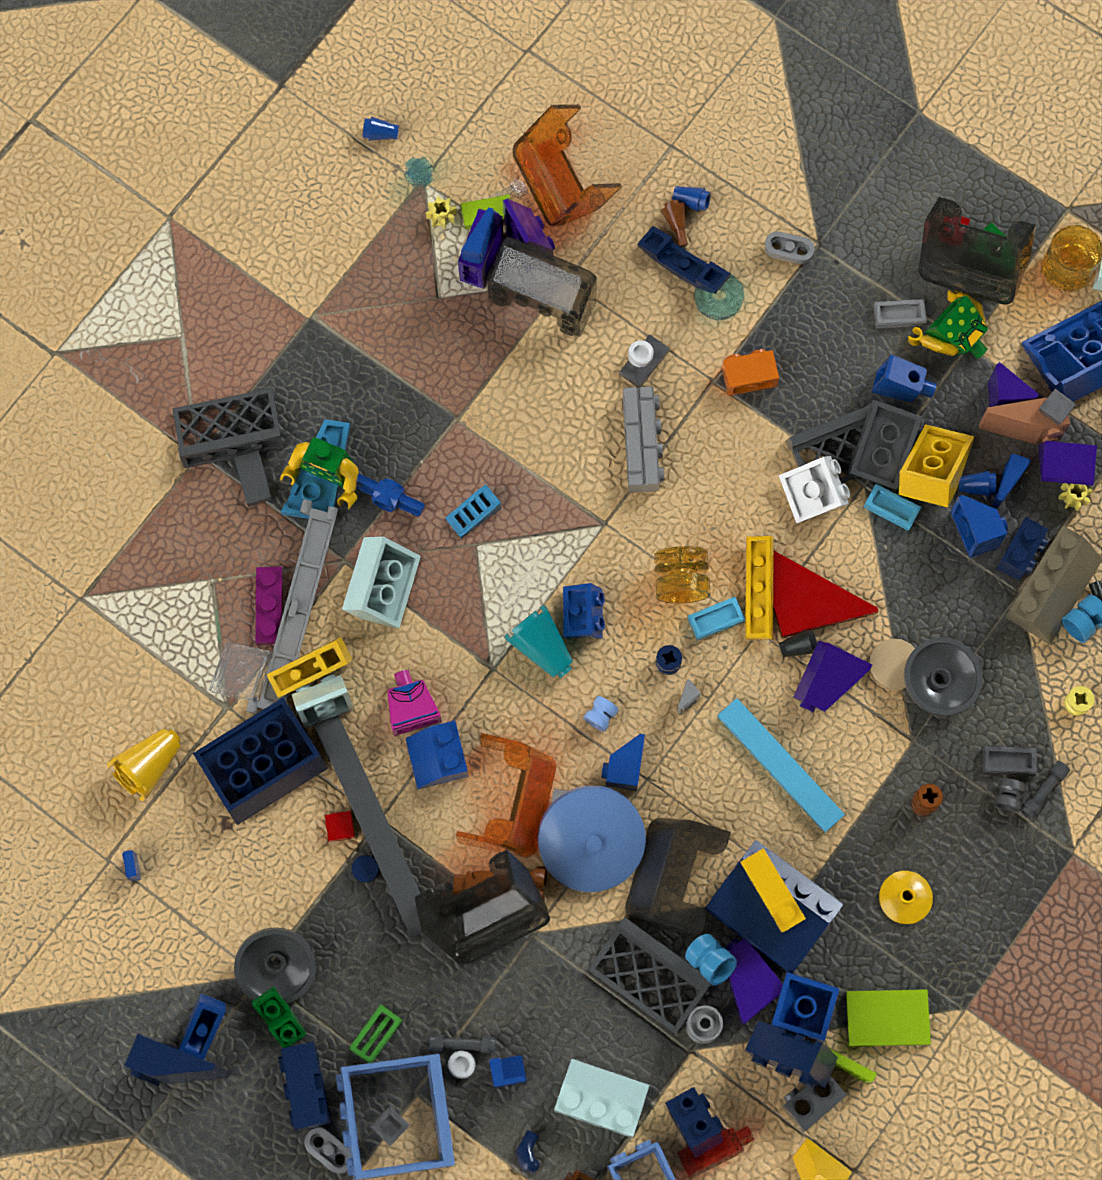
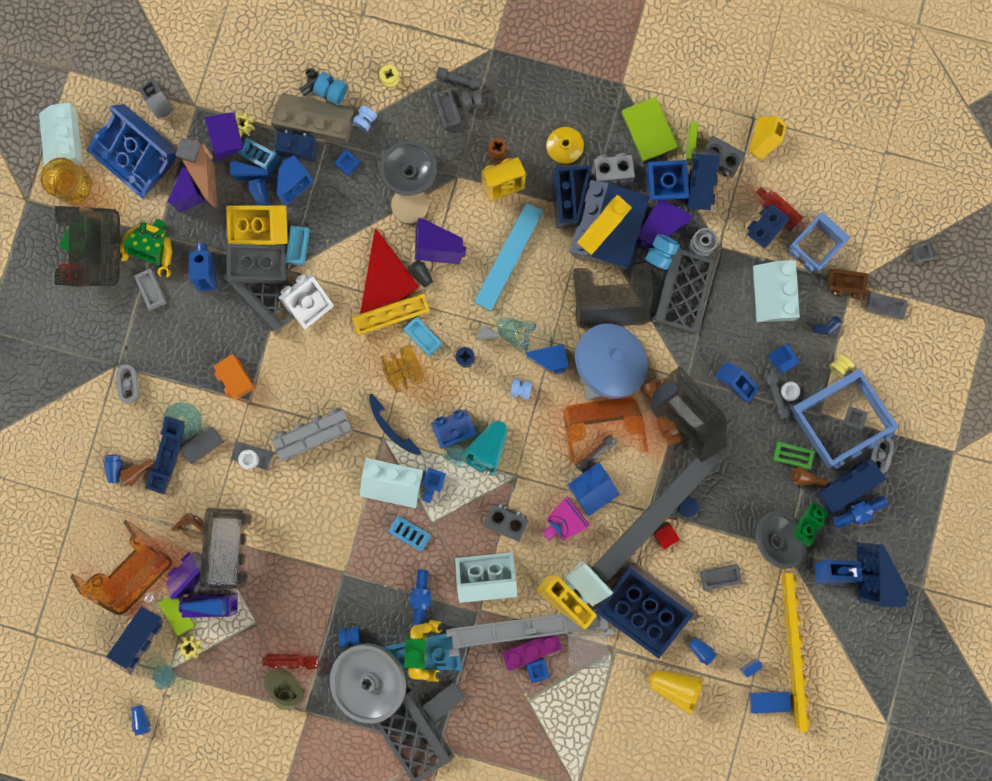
camera: 110 degrees left, 10 degrees up
(79, 874) = (770, 702): none -> blue tile
(115, 928) = (796, 659): none -> yellow plate
(178, 813) = (702, 651): none -> blue cone
(241, 603) = (537, 670): none -> blue tile
(260, 875) = (720, 577): none -> flat silver tile
(267, 1090) = (860, 512): none -> blue axle
(313, 395) = (368, 683): none -> light grey dish
(342, 1034) = (803, 477): none -> dark orange cone
(348, 298) = (284, 689): none -> olive piece
(377, 319) = (292, 661): none -> clear red hinge
(377, 395) = (349, 636): none -> blue wheel
(433, 627) = (504, 527): none -> dark grey brick
(467, 1146) = (841, 366): none -> light yellow wheel
(474, 757) = (608, 442): none -> dark grey bar
(475, 153) = (135, 640): none -> dark blue wedge
(501, 996) = (737, 381): none -> blue slope
(525, 562) = (433, 482): none -> blue plate
(545, 512) = (391, 483): none -> light aqua slope
(551, 600) = (454, 455): none -> clear light blue plate
(597, 262) = (196, 520): none -> dark orange bracket
(643, 526) = (377, 409): none -> dark blue slope
(680, 307) = (201, 445): none -> dark grey tile
(685, 728) = (507, 330): none -> clear light blue piece
(835, 871) = (568, 194): none -> dark blue wedge
(842, 943) = (614, 175): none -> light grey brick
(885, 788) = (503, 178): none -> yellow brick
(980, 607) = (347, 162): none -> blue tile
(1016, 511) = (268, 162): none -> dark azure slope
(1036, 652) = (364, 118): none -> light blue wheel

